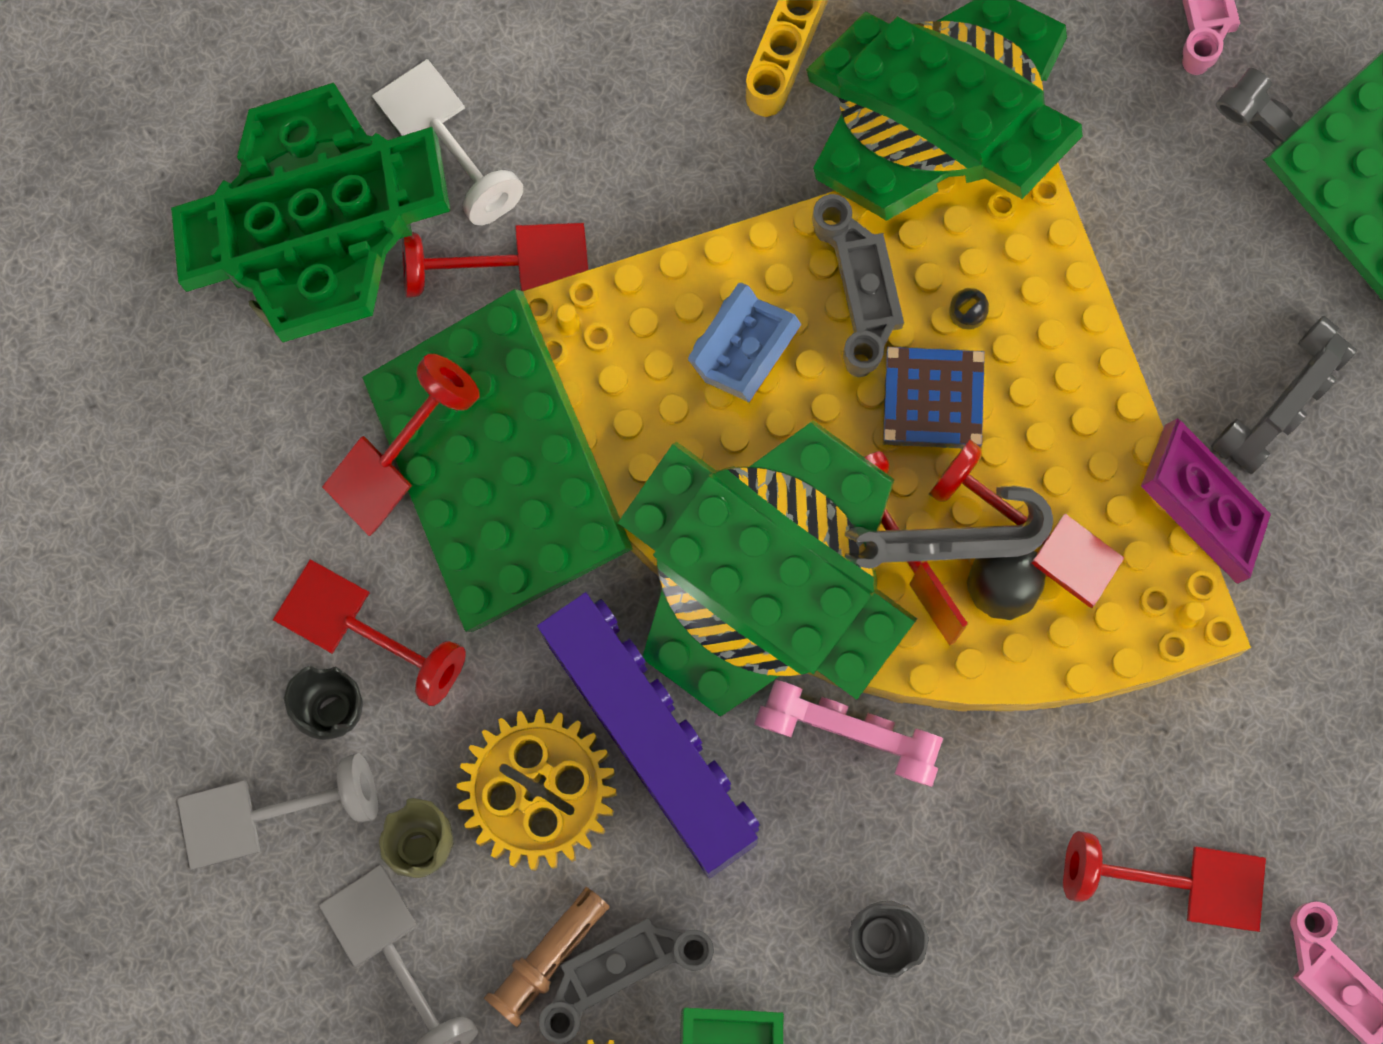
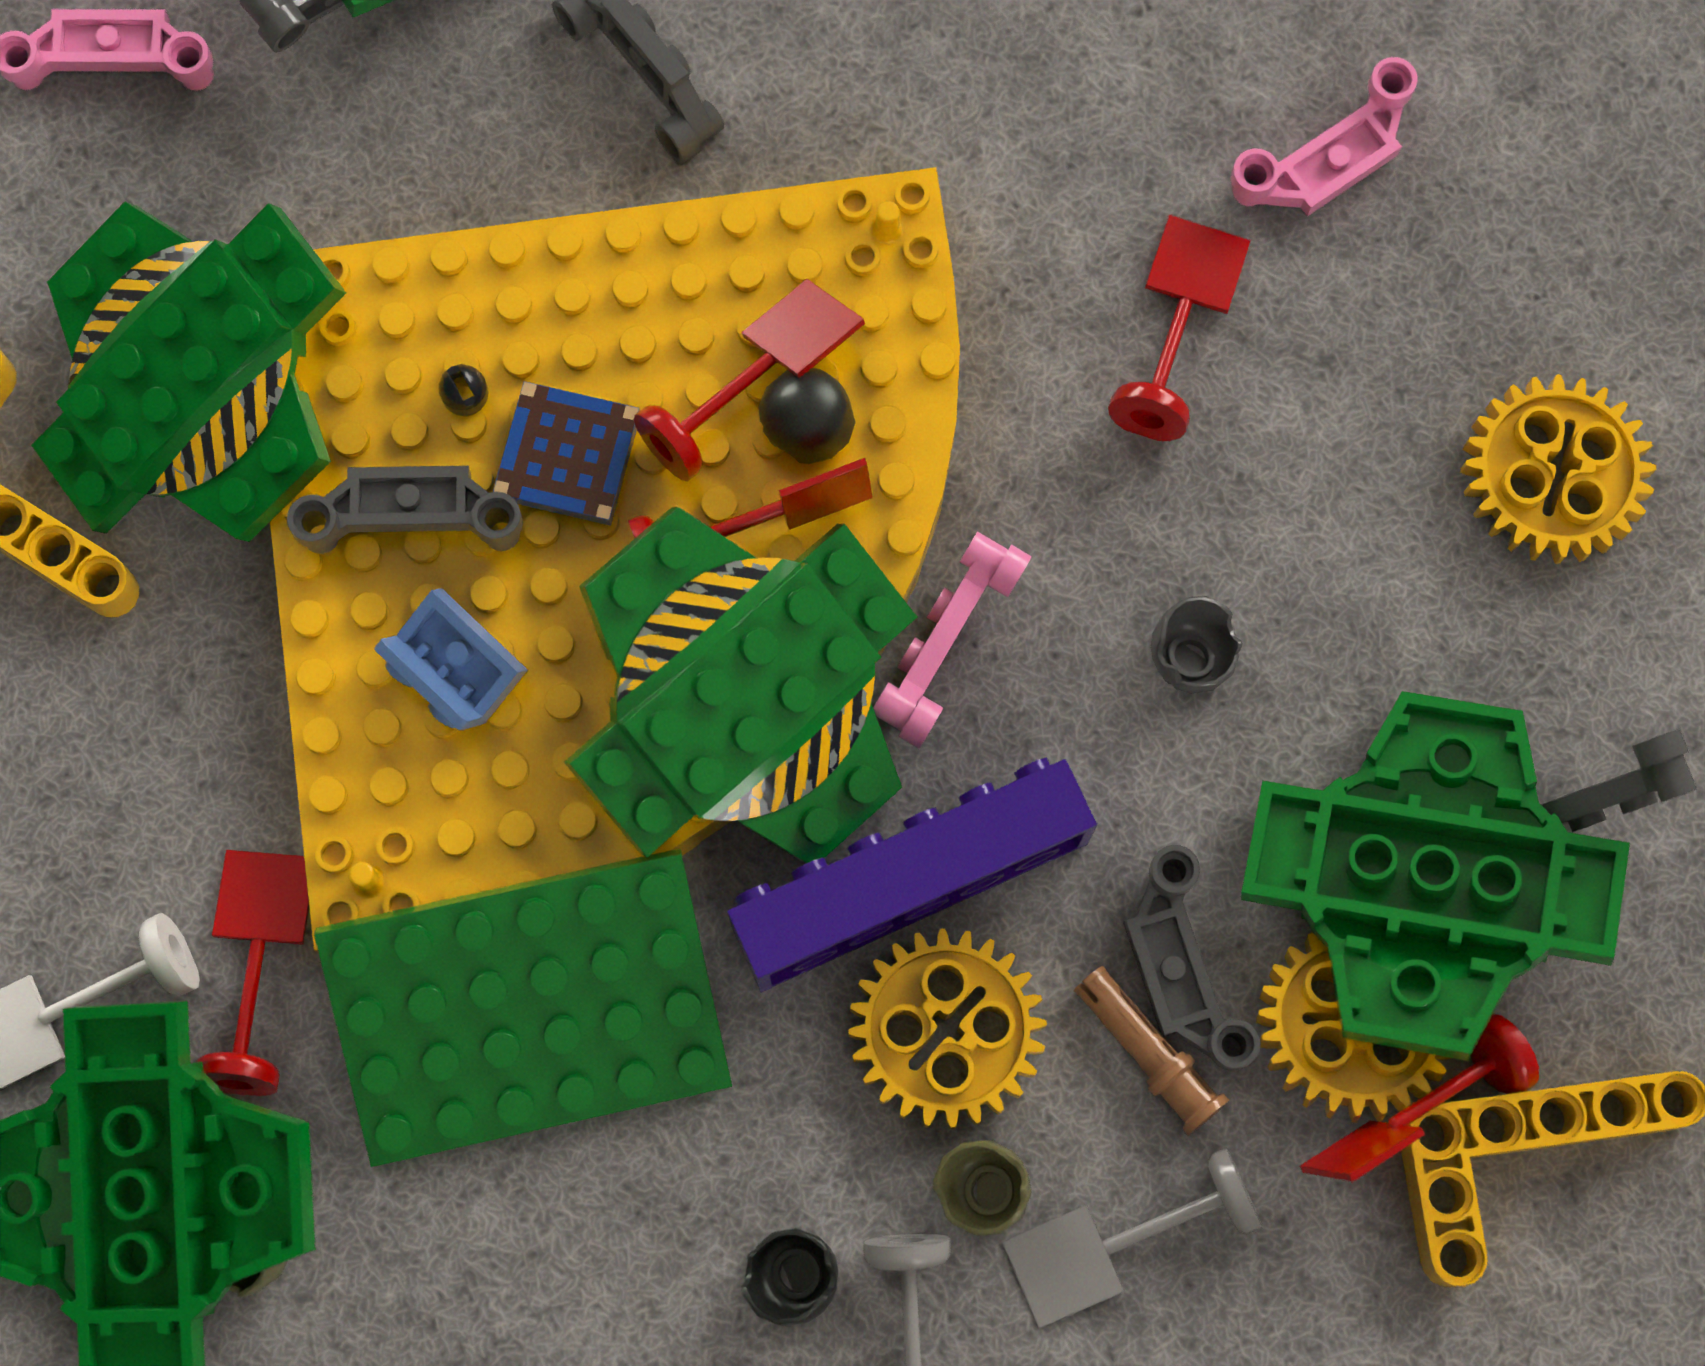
camera: 85 degrees left, 0 degrees up
(325, 607) = (662, 1261): red piece -> none
(365, 479) = (515, 1178): red piece -> none
(958, 542) = (762, 449): dark grey piece -> none
(1206, 500) = (753, 176): magenta tile -> none

